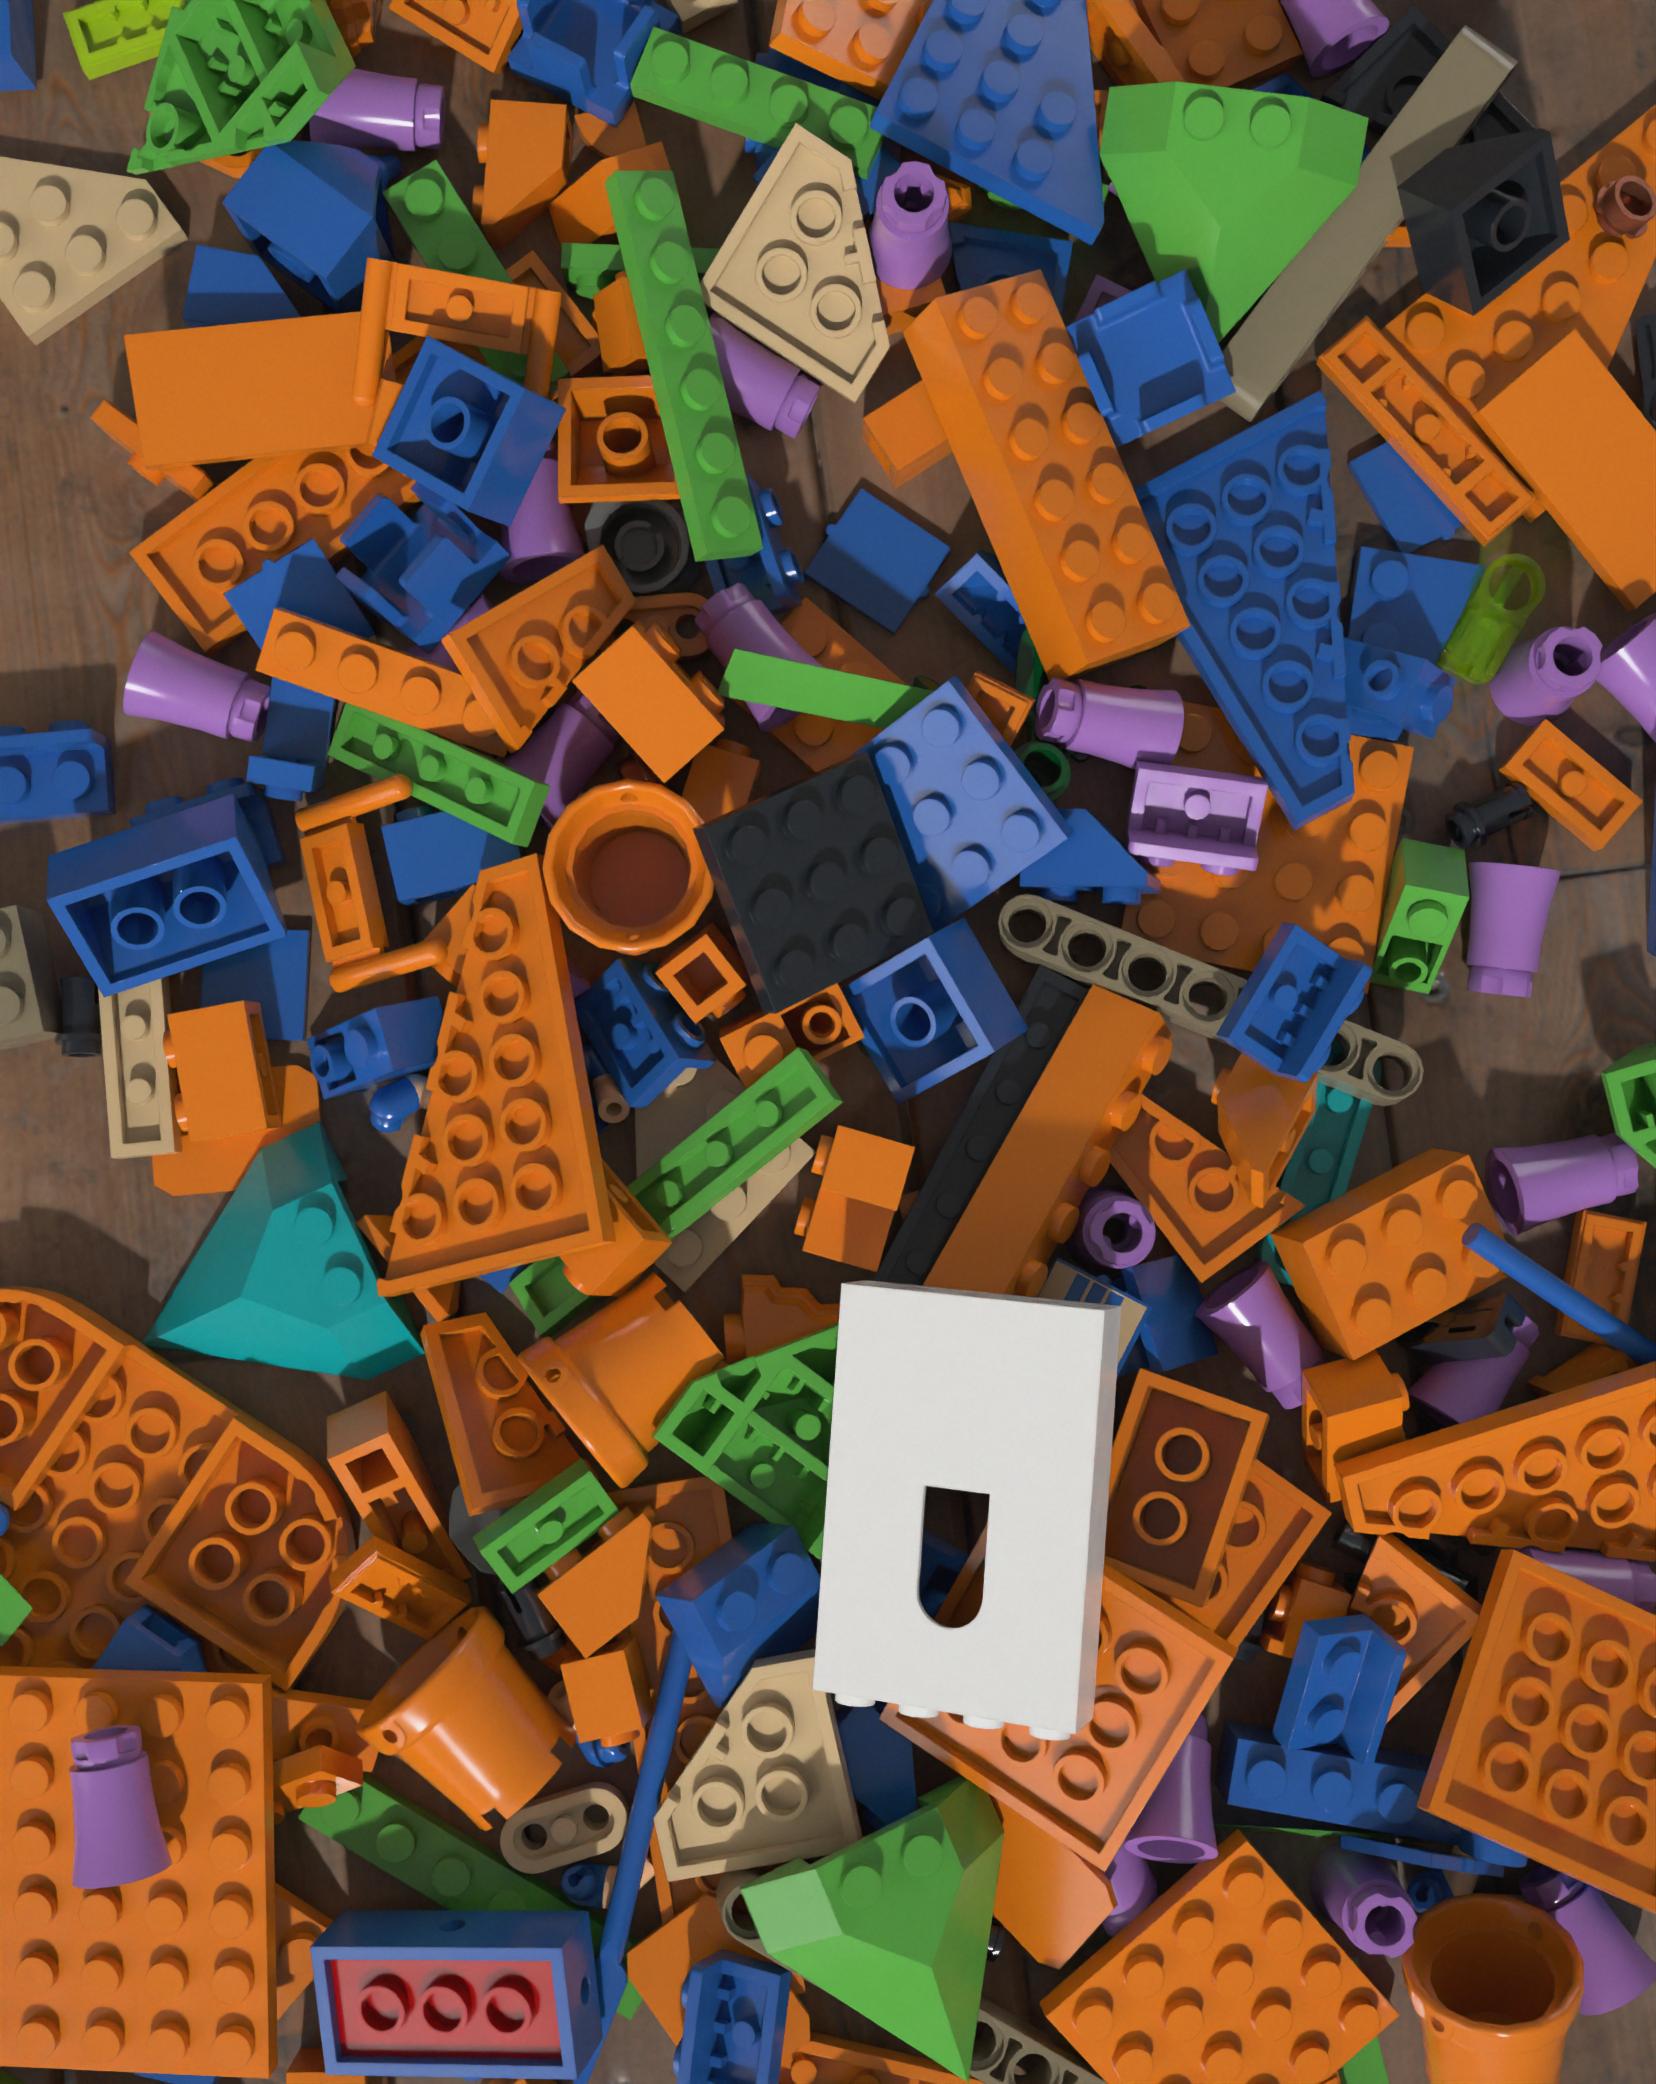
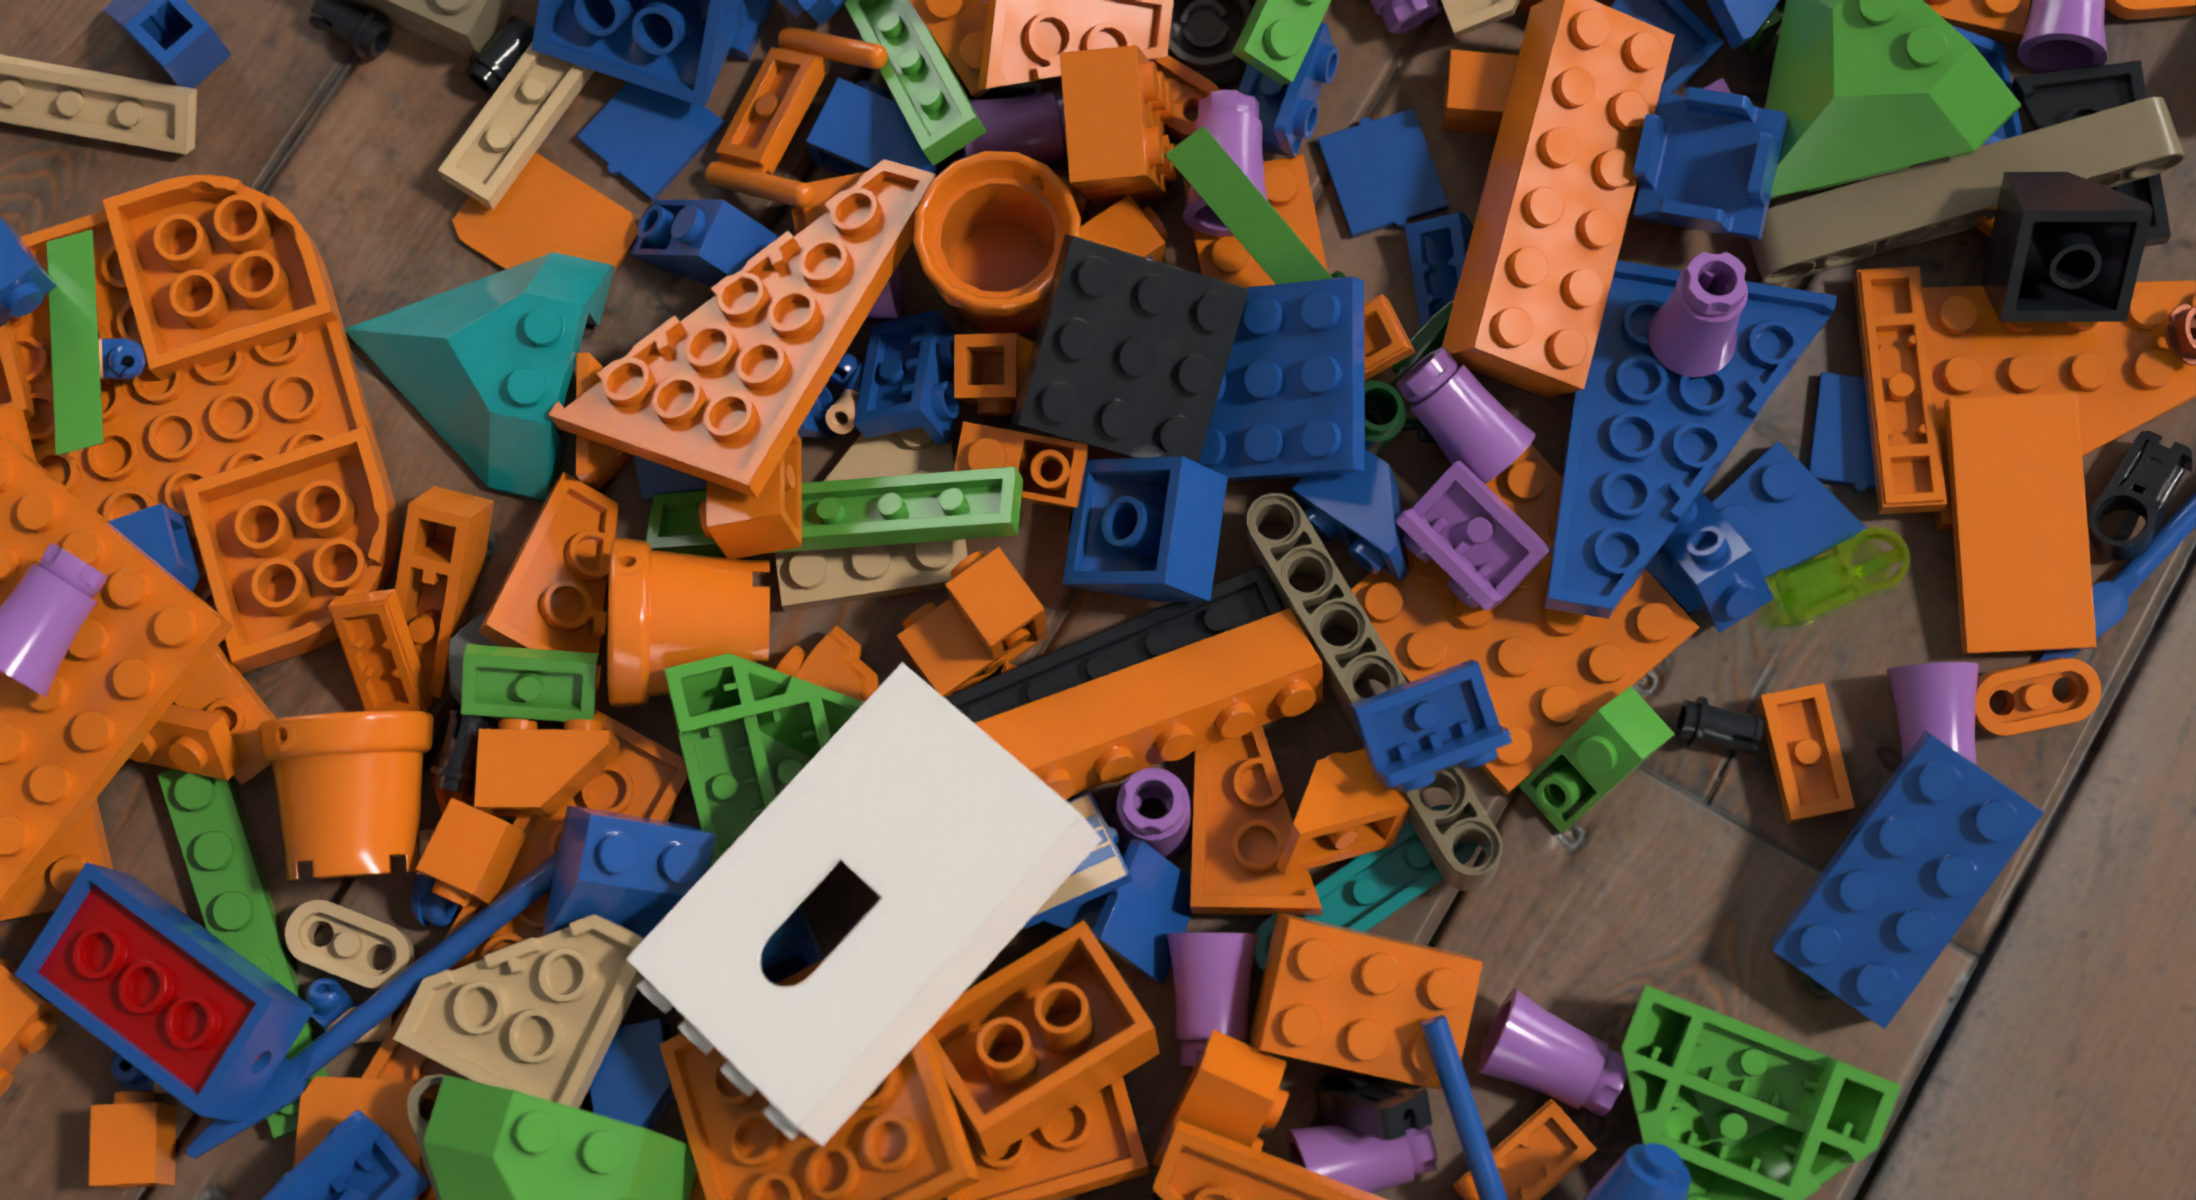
camera: 45 degrees right, 10 degrees down
(222, 1071) = (572, 170): orange brick -> none
(397, 1101) = (679, 294): blue arm -> none
(1240, 498) = (1700, 319): none -> medium lavender plant
(1507, 925) = (1665, 821): medium lavender plant -> none
(1546, 674) = (1833, 658): medium lavender plant -> none

